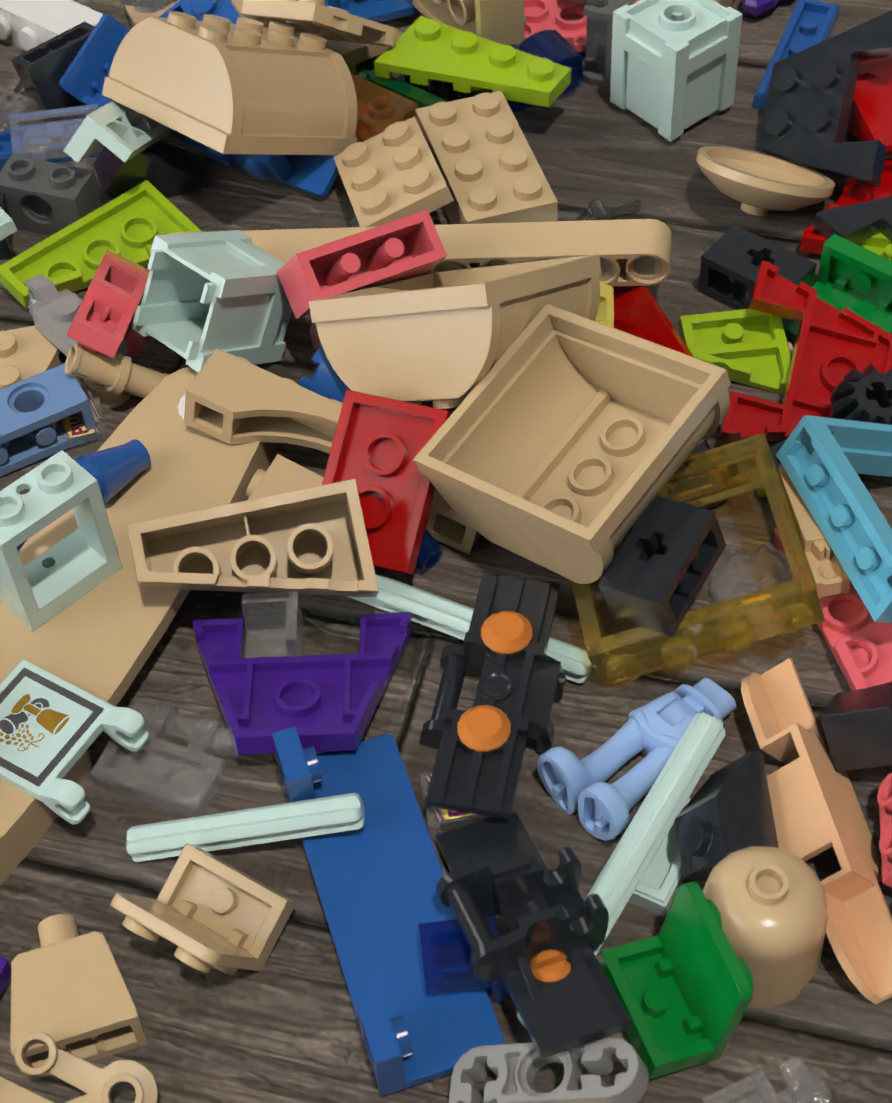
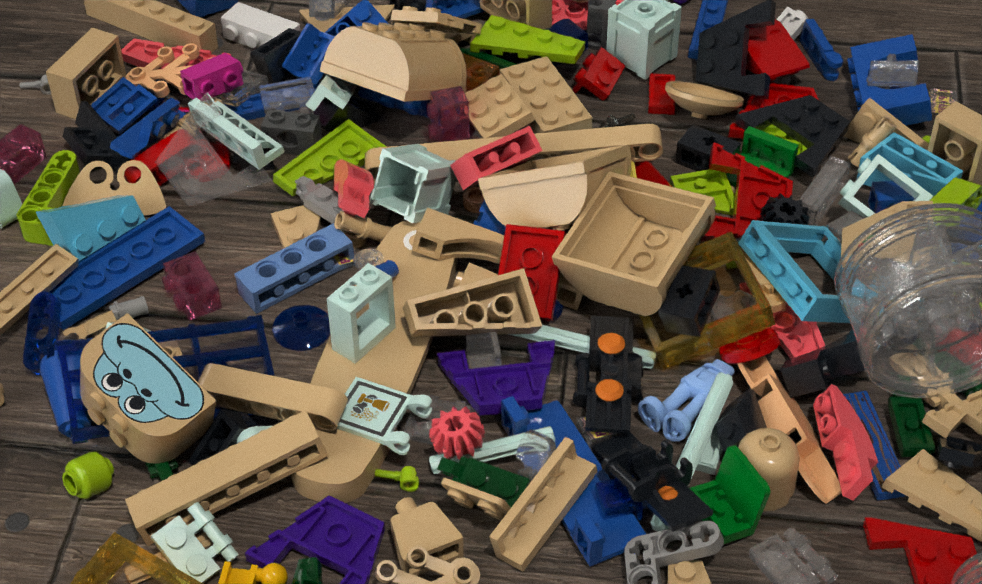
camera: 10 degrees left, 5 degrees down
(81, 869) = (407, 477): none -> lime hand
(102, 433) = (367, 256): none -> clear plate
(176, 792) = (457, 433): none -> coral gear
(214, 898) = (485, 478): none -> dark green hinge
(312, 182) = (448, 115): none -> clear pink brick
(312, 856) = (534, 452): none -> clear hair
(312, 960) = (542, 506): none -> tan fence
(594, 127) = (599, 74): none -> red bracket
(686, 179) = (659, 100): none -> red tile
(772, 661) = (750, 347): none -> red tile

